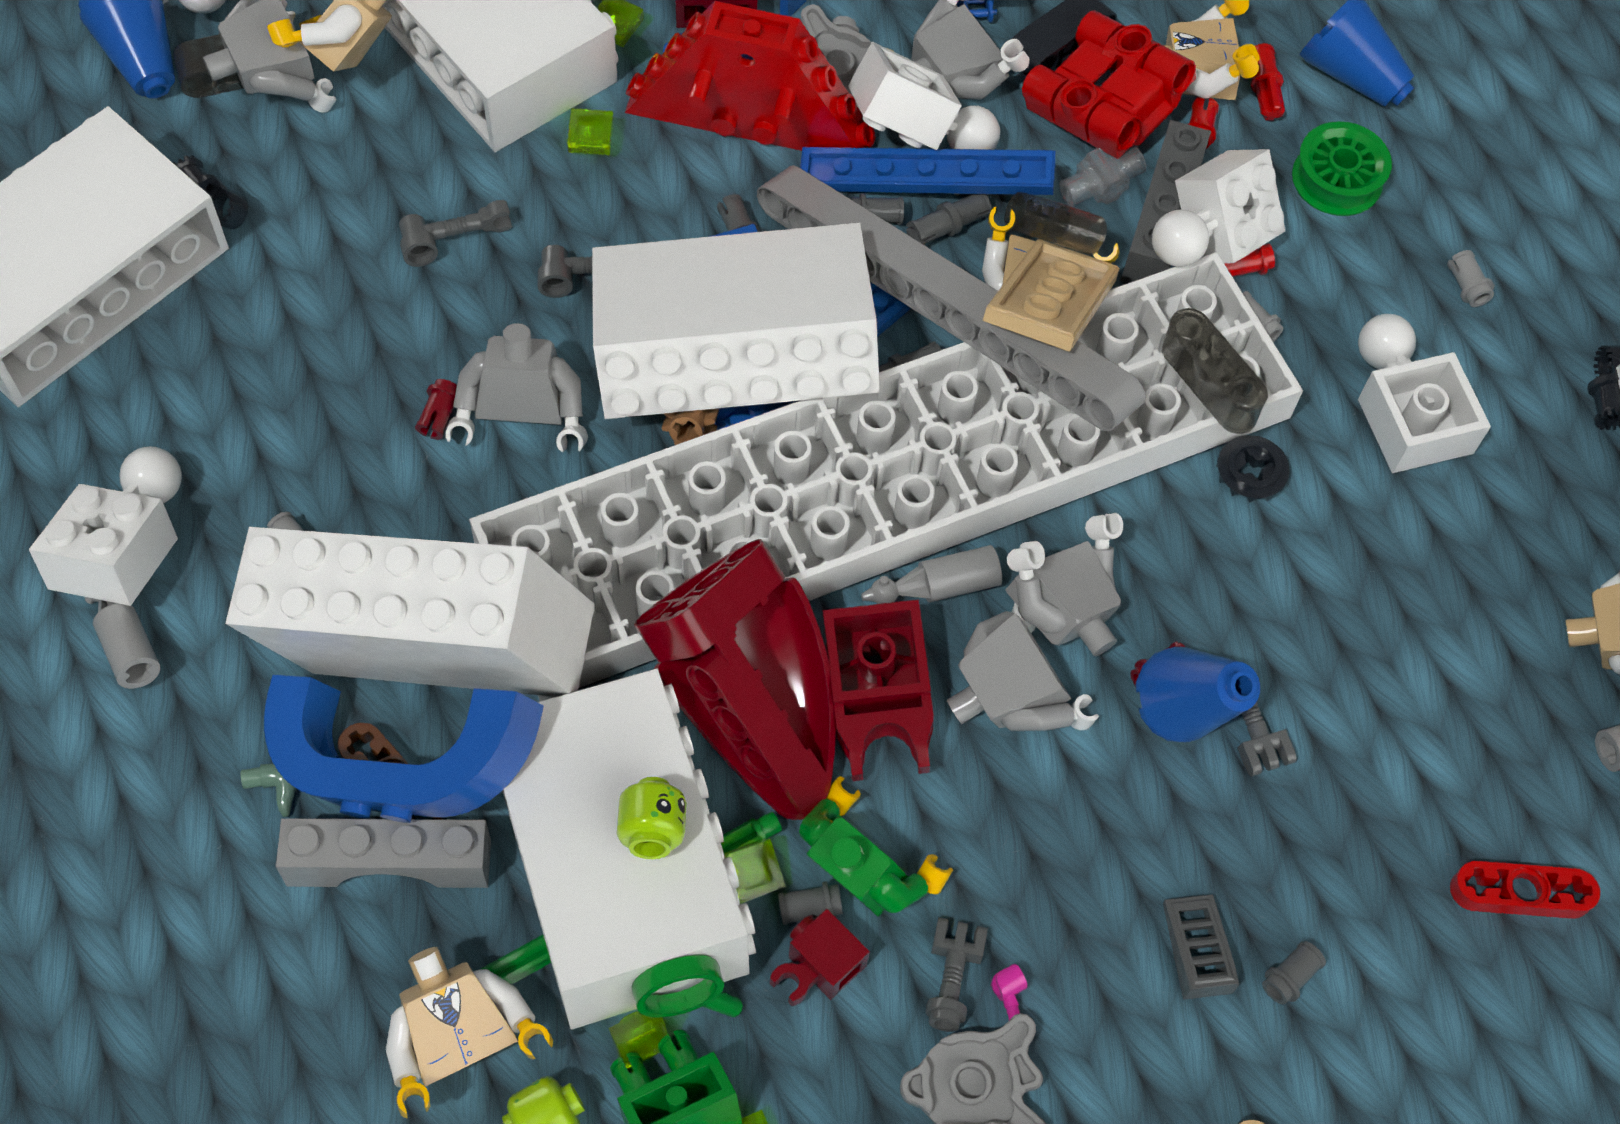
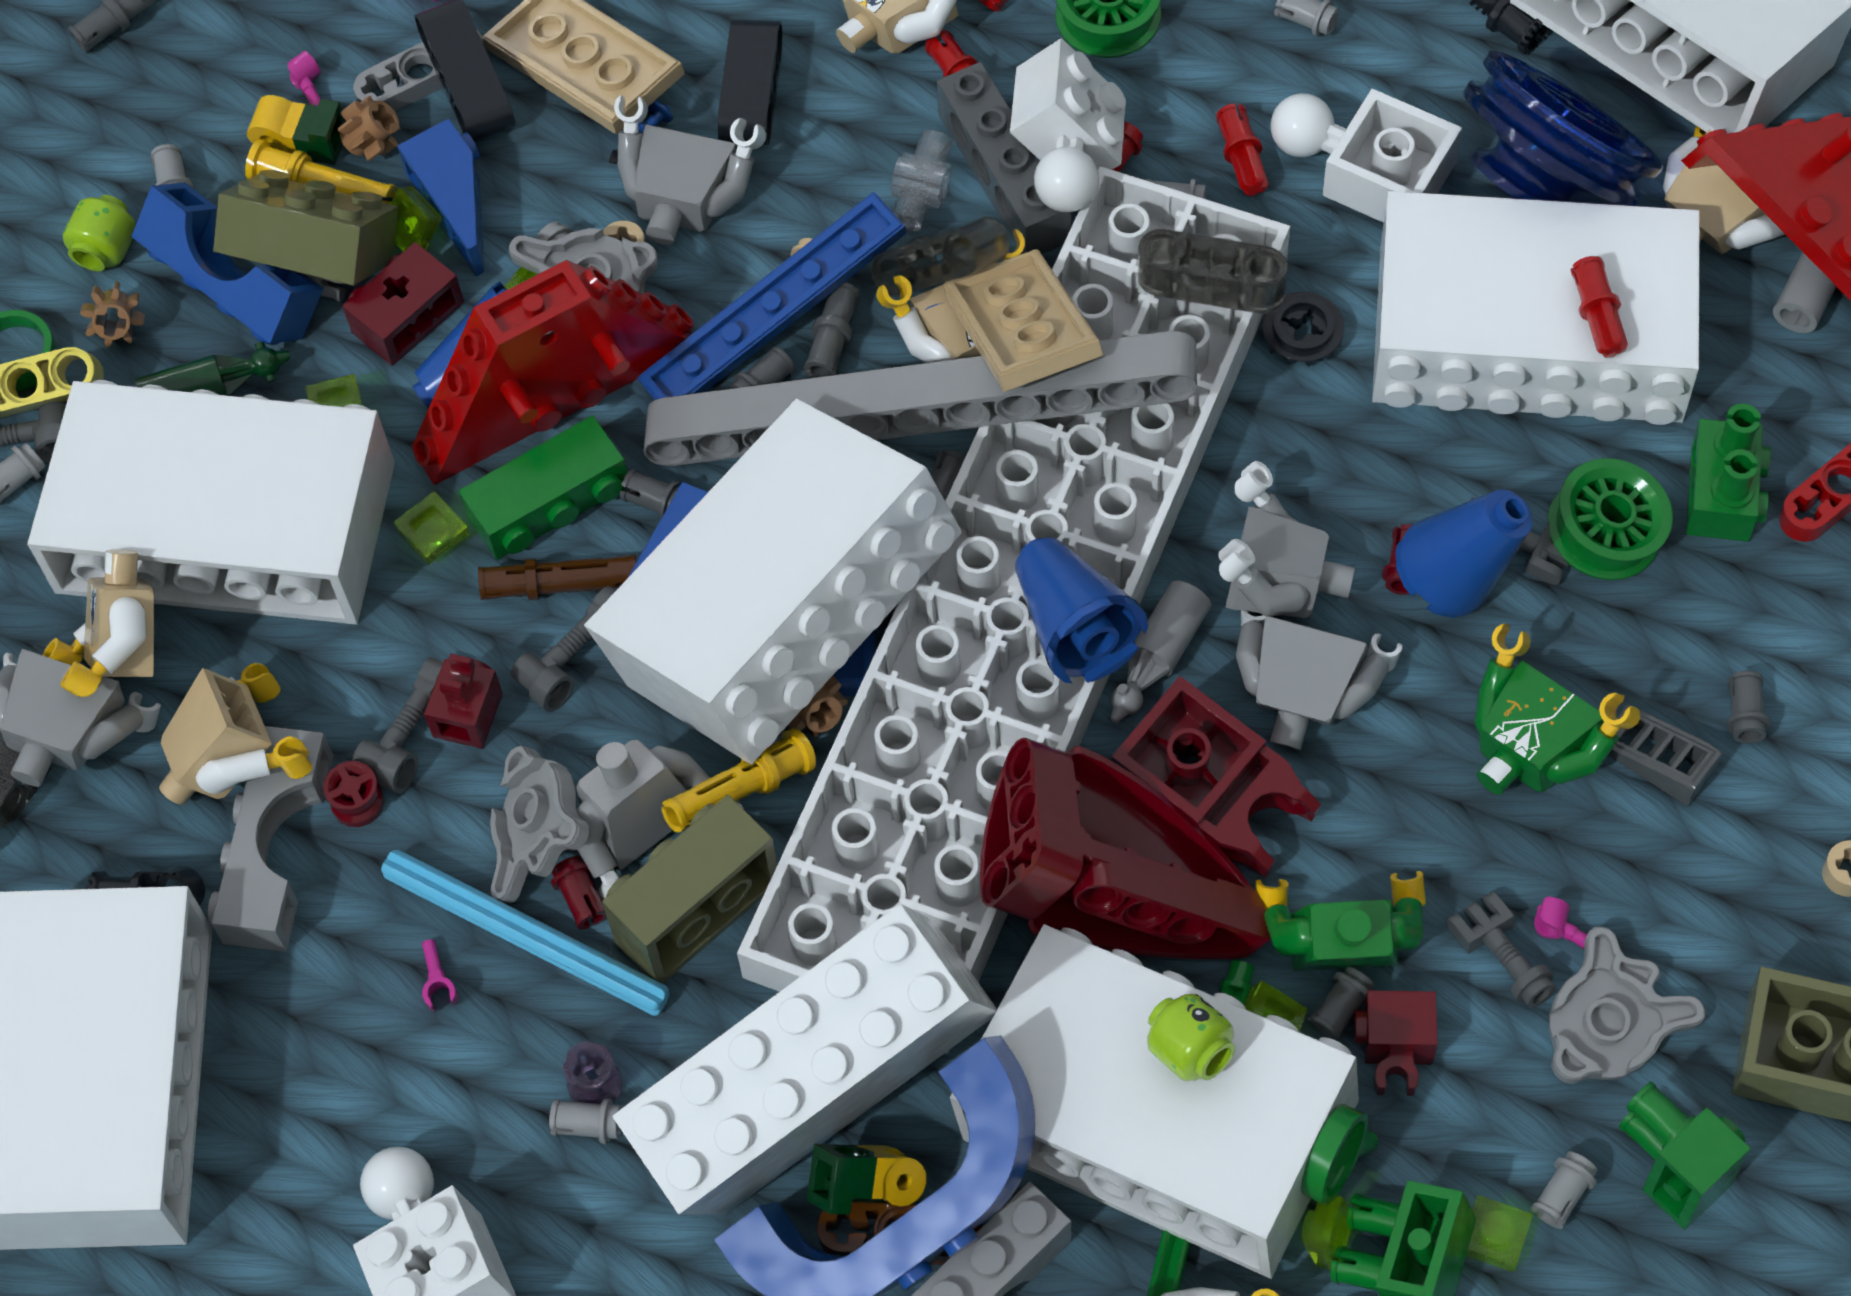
camera: 35 degrees left, 0 degrees up
(307, 387) = (436, 976): none -> dark pink hand
(324, 511) = (600, 1060): none -> clear purple bush
(339, 137) = (222, 739): none -> tan torso
(350, 196) = (253, 902): none -> light grey arch
(372, 232) = (347, 782): none -> dark red wheel
(385, 406) = (526, 932): none -> medium azure axle
(400, 722) = (862, 1173): none -> dark green leg
(452, 344) = (535, 821): none -> light grey tile
(487, 458) = (691, 889): none -> olive brick
(496, 241) = (463, 701): none -> dark red brick
(575, 420) = (778, 761): none -> yellow pin
(618, 212) = (553, 577): none -> reddish brown pin
(676, 162) = (544, 488): none -> green brick
(888, 500) = (1077, 612): none -> blue cone
(918, 104) = (708, 251): white brick -> none
(1129, 103) = (884, 92): red piece -> none
(1130, 849) = (1538, 727): none -> green torso
(1333, 326) = (1242, 149): none -> red axle
(1345, 788) = (1626, 496): none -> green wheel
(1422, 583) = (1489, 318): none -> white brick
(1442, 809) = (1726, 476): none -> green brick
(1454, 611) = (1599, 306): none -> red axle
(1546, 485) = (1553, 138): none -> clear blue wheel

